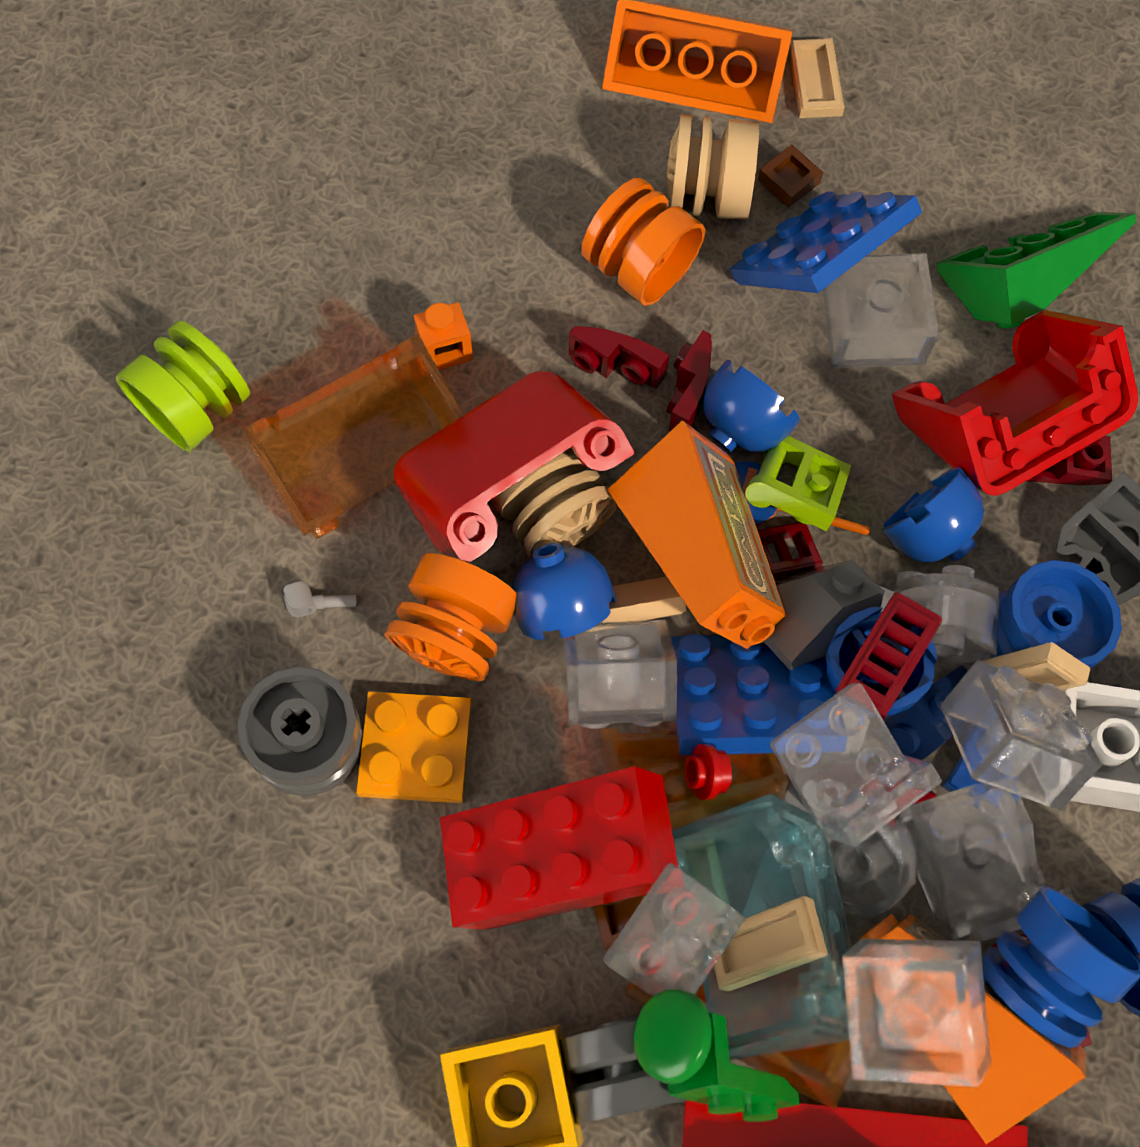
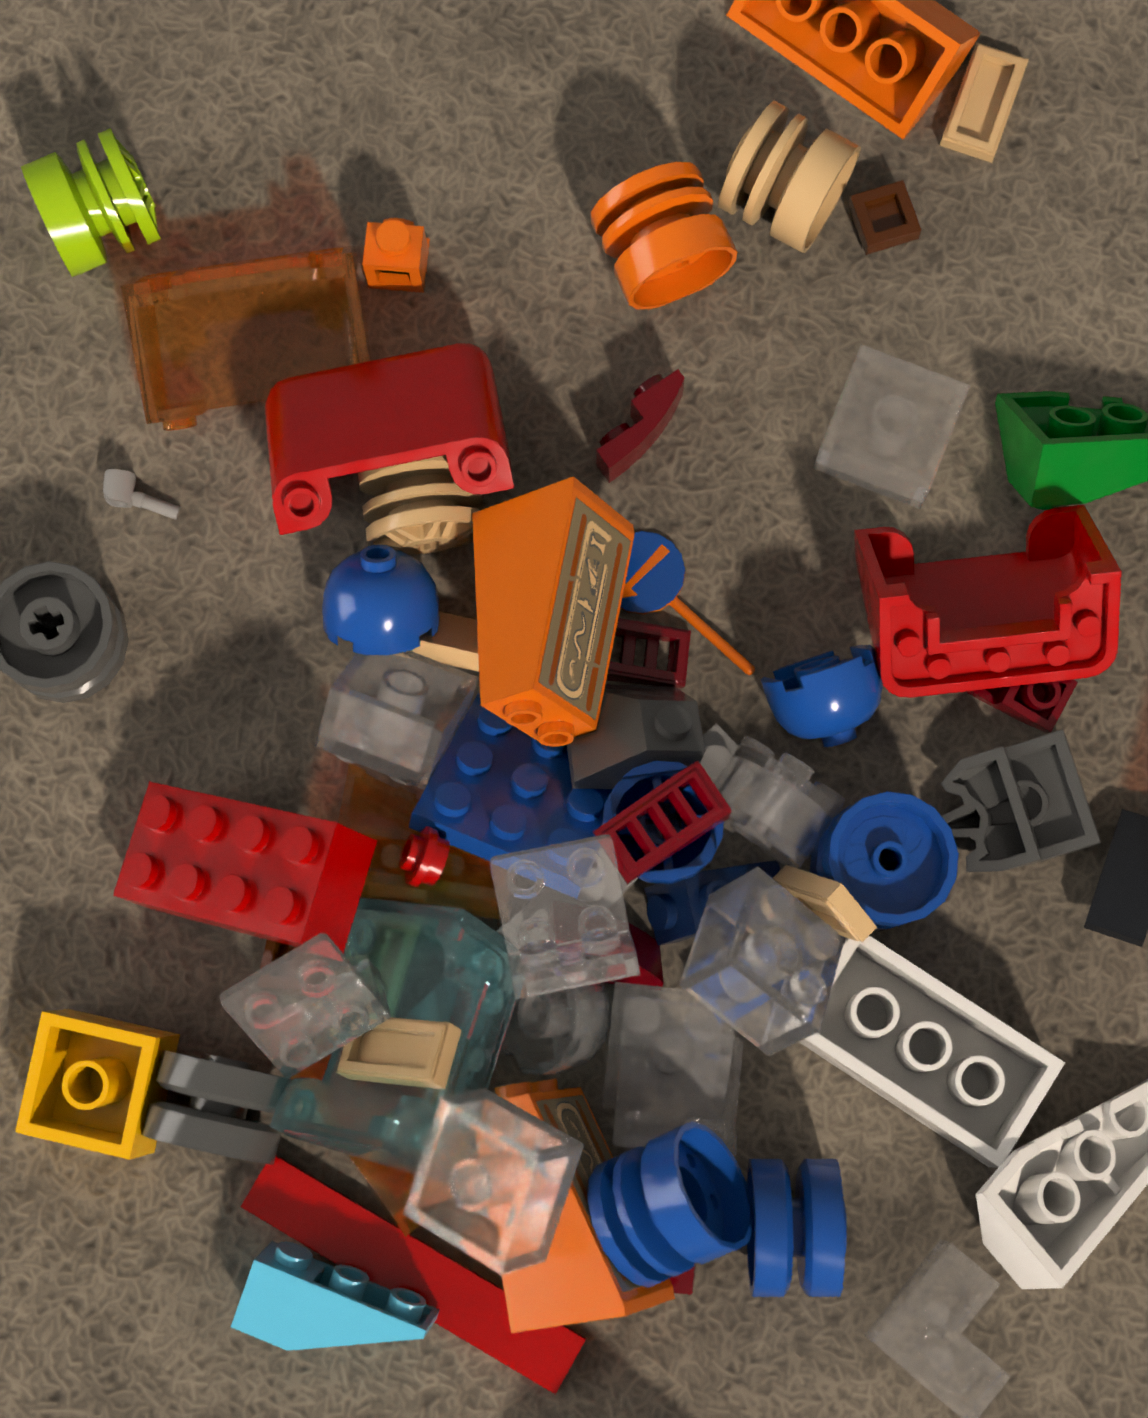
camera: 30 degrees right, 10 degrees up
(414, 747) = (167, 696): light orange plate -> none
(455, 610) = (254, 580): orange wheel -> none
(604, 349) = (567, 347): dark red slope -> none
(690, 1053) = (263, 1124): green piece -> none
(745, 411) = (680, 483): blue cylinder -> none
(814, 487) = (710, 600): lime plate -> none
(824, 240) = (864, 321): blue plate -> none

